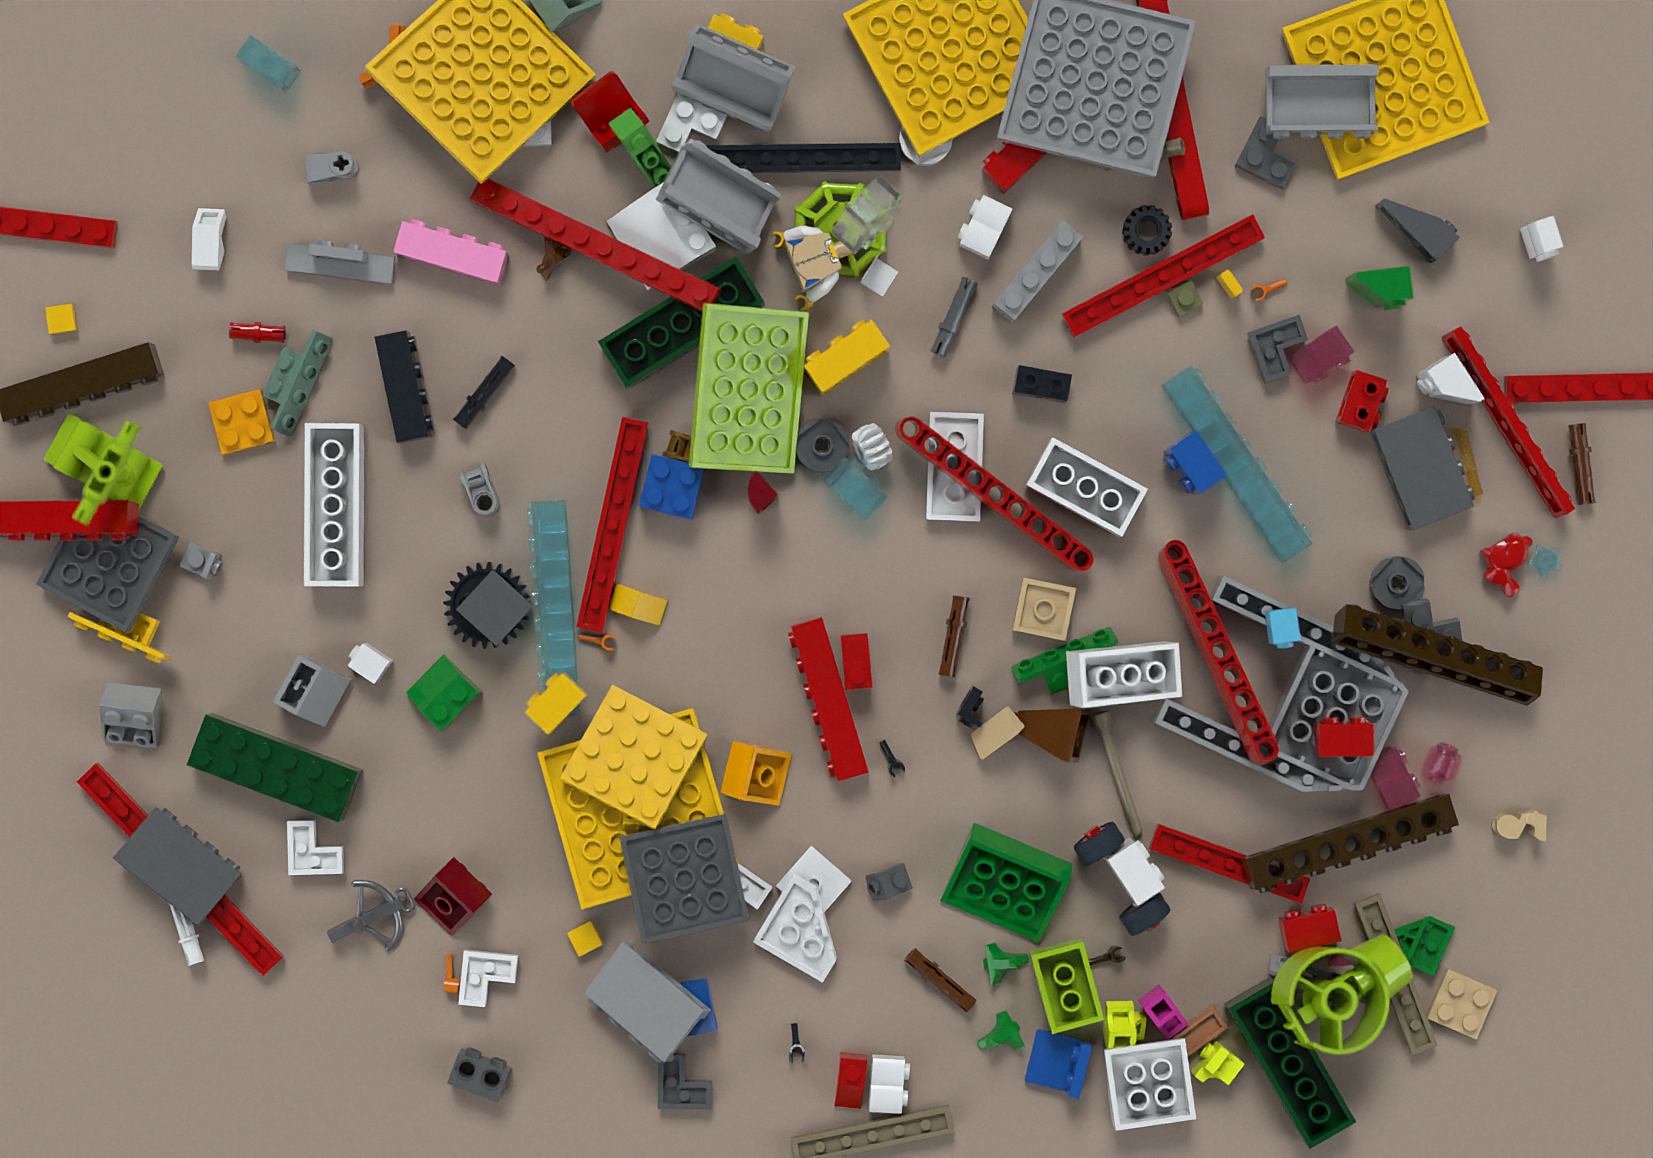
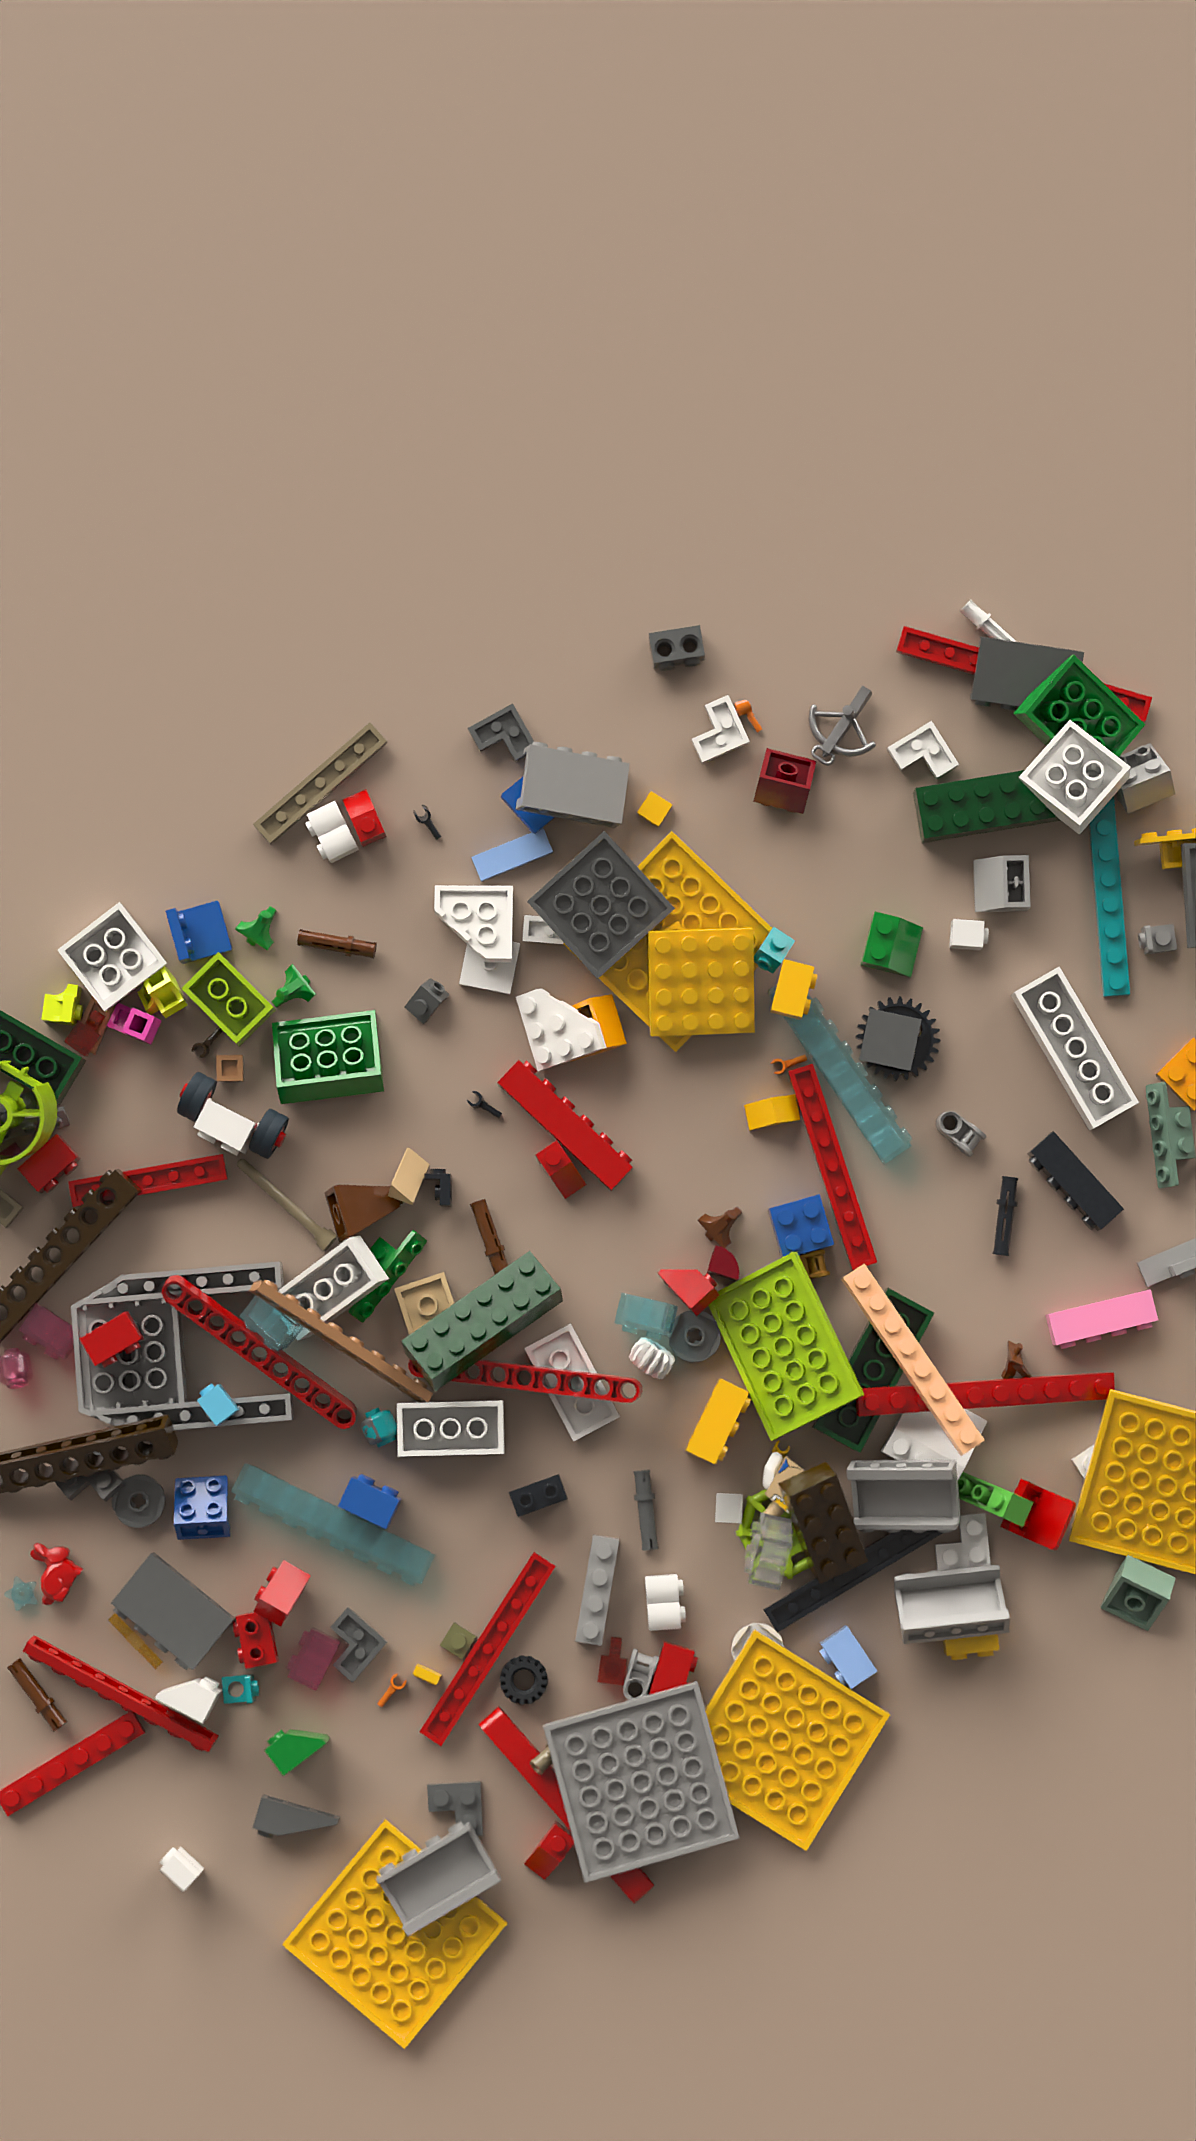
camera: 150 degrees right, 5 degrees down
(153, 798) = (1083, 698): none -> green slope
(187, 748) = (1075, 776): none -> white slope
(221, 628) = (1109, 902): none -> teal plate
(552, 748) = (773, 950): none -> bracket
(641, 310) = (912, 1359): none -> light nougat plate
(737, 970) = (512, 855): none -> light blue tile
(744, 529) = (719, 1226): none -> reddish brown piece
(787, 788) = (557, 1030): none -> white plate
(801, 488) = (691, 1287): none -> slope
(805, 213) = (823, 1522): none -> dark brown brick
(850, 85) = (847, 1657): none -> light blue brick
(1004, 566) = (482, 1320): none -> brick
(1042, 176) = (639, 1673): none -> light grey piece
(1062, 197) = (612, 1666): none -> clear red plate
(1099, 922) = (230, 1068): none -> medium nougat plate
(1145, 631) = (333, 1335): none -> medium nougat plate
(1148, 525) = (379, 1427): none -> teal head
(1191, 673) = (270, 1324): none -> clear light blue brick
(1208, 69) = (550, 1850): none -> red slope
(1214, 1026) = (83, 1036): none -> clear red plate
(1317, 428) = (281, 1593): none -> brick
(1345, 545) = (201, 1507): none -> blue bracket
(1390, 363) = (251, 1689): none -> teal bracket

